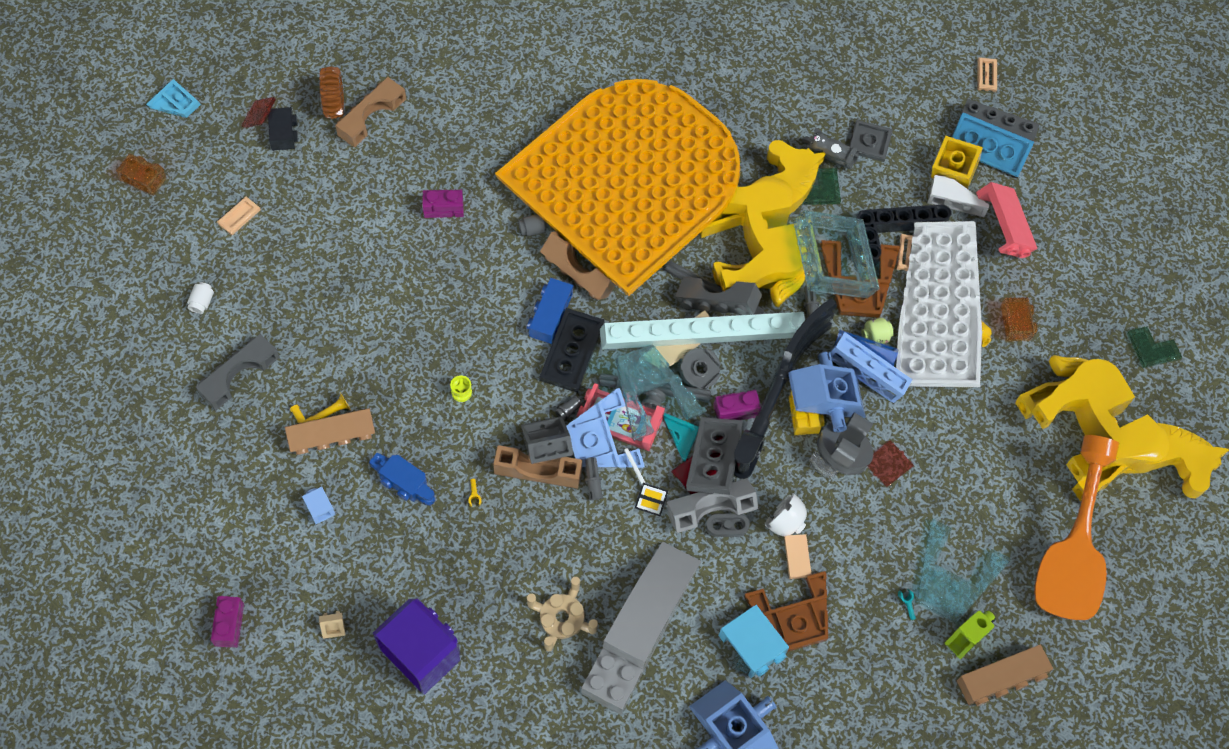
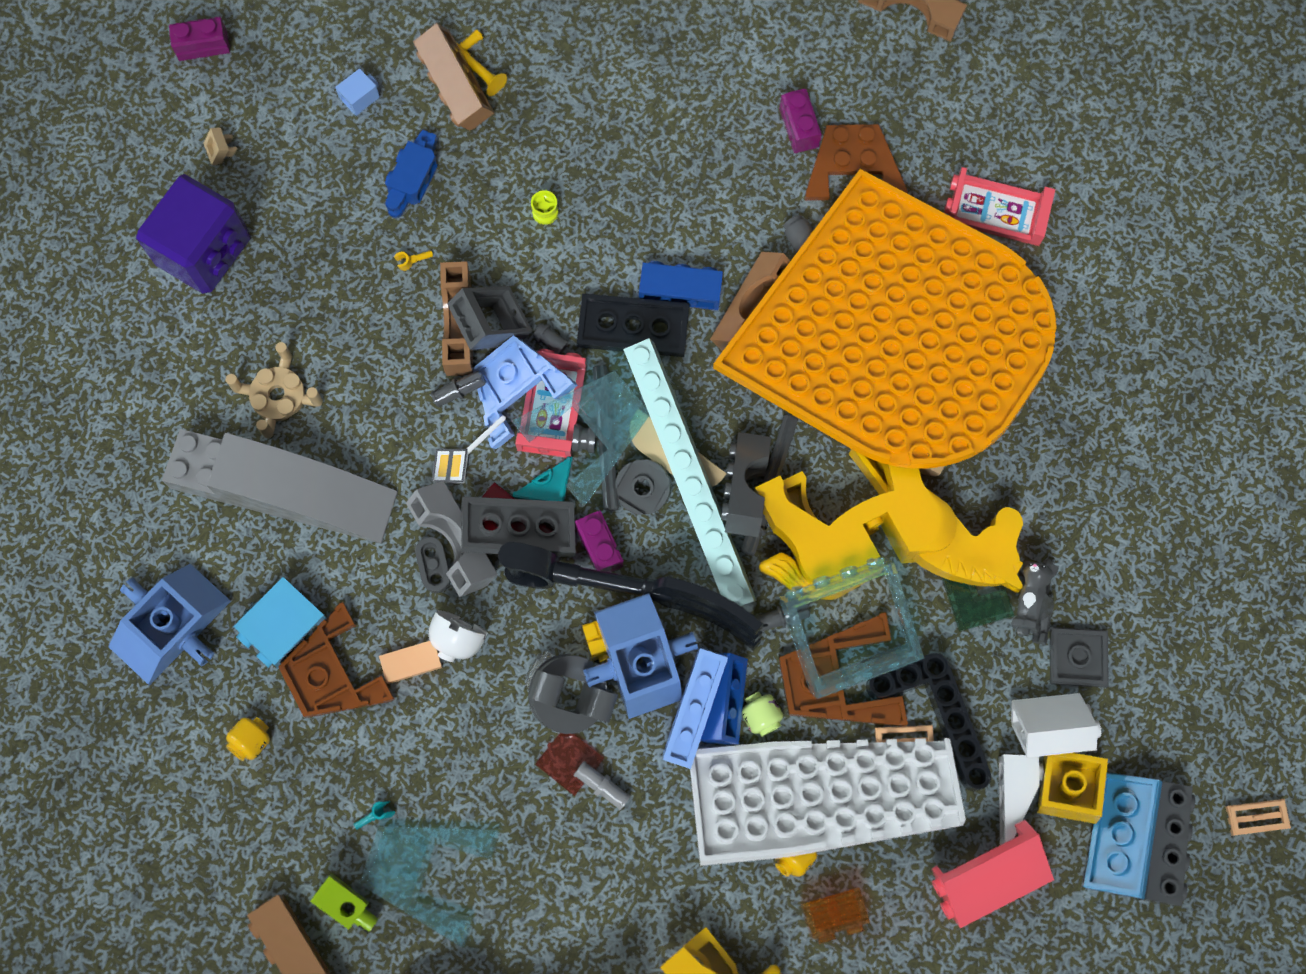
camera: 80 degrees right, 10 degrees up
(475, 177) = (846, 151): none -> dark orange wing
(546, 100) = (1000, 208): none -> panel
(837, 683) = (247, 738): none -> yellow head
(910, 443) = (602, 785): none -> light grey pin
(917, 161) = (1054, 725): none -> white brick

